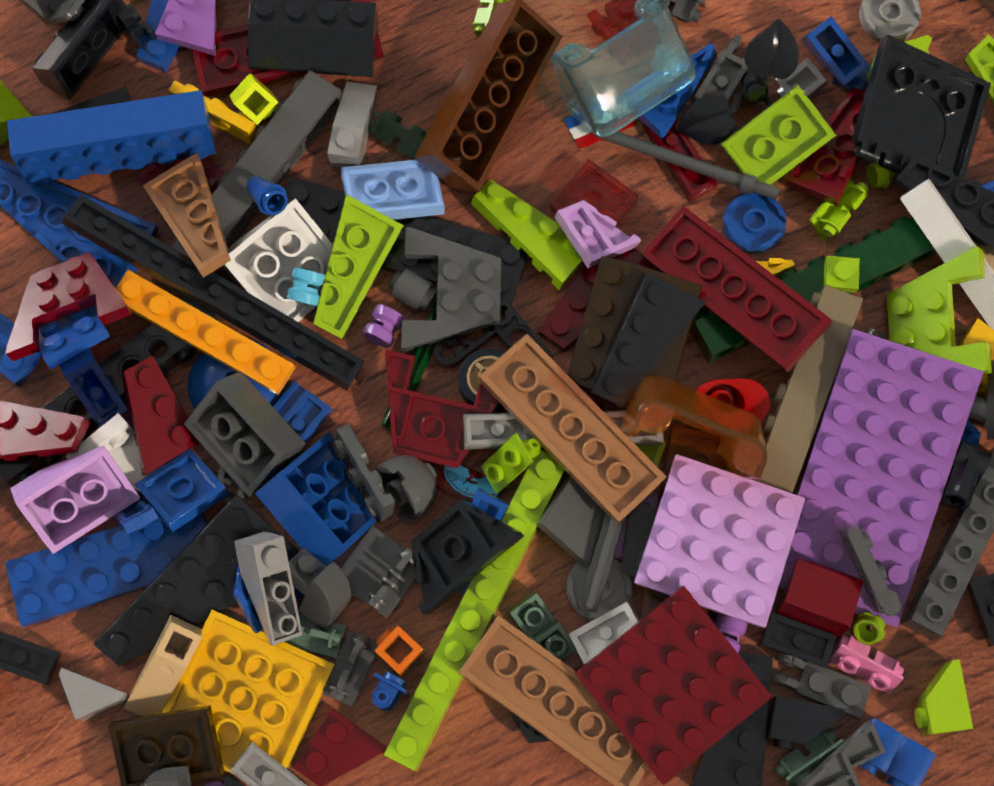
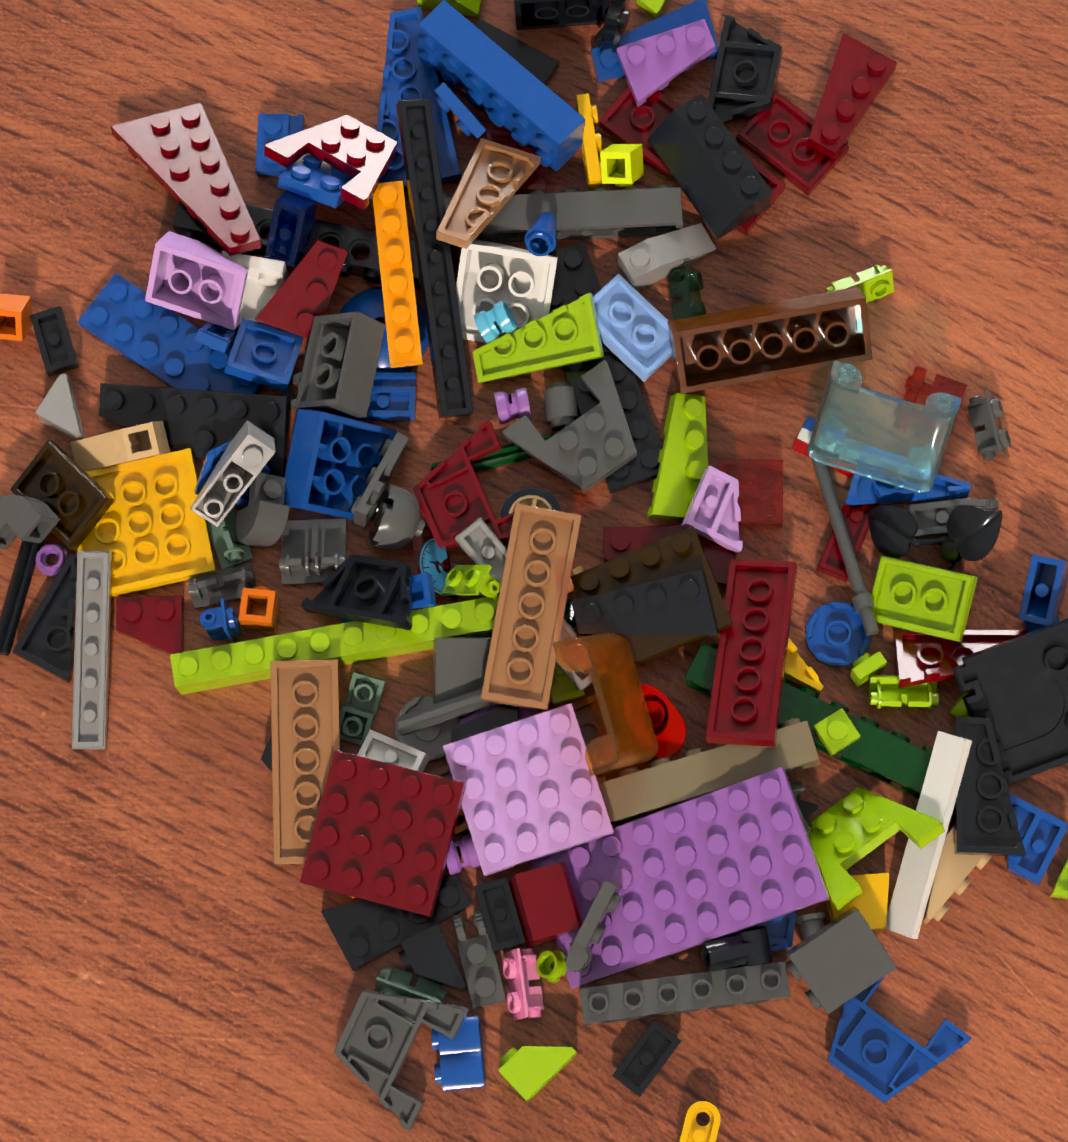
camera: 60 degrees right, 0 degrees up
(117, 185) = (467, 120): none -> blue plate
(512, 323) = (583, 501): black beam -> none
(800, 219) = (866, 666): none -> lime plate
(806, 76) = (996, 583): flat silver bracket -> none

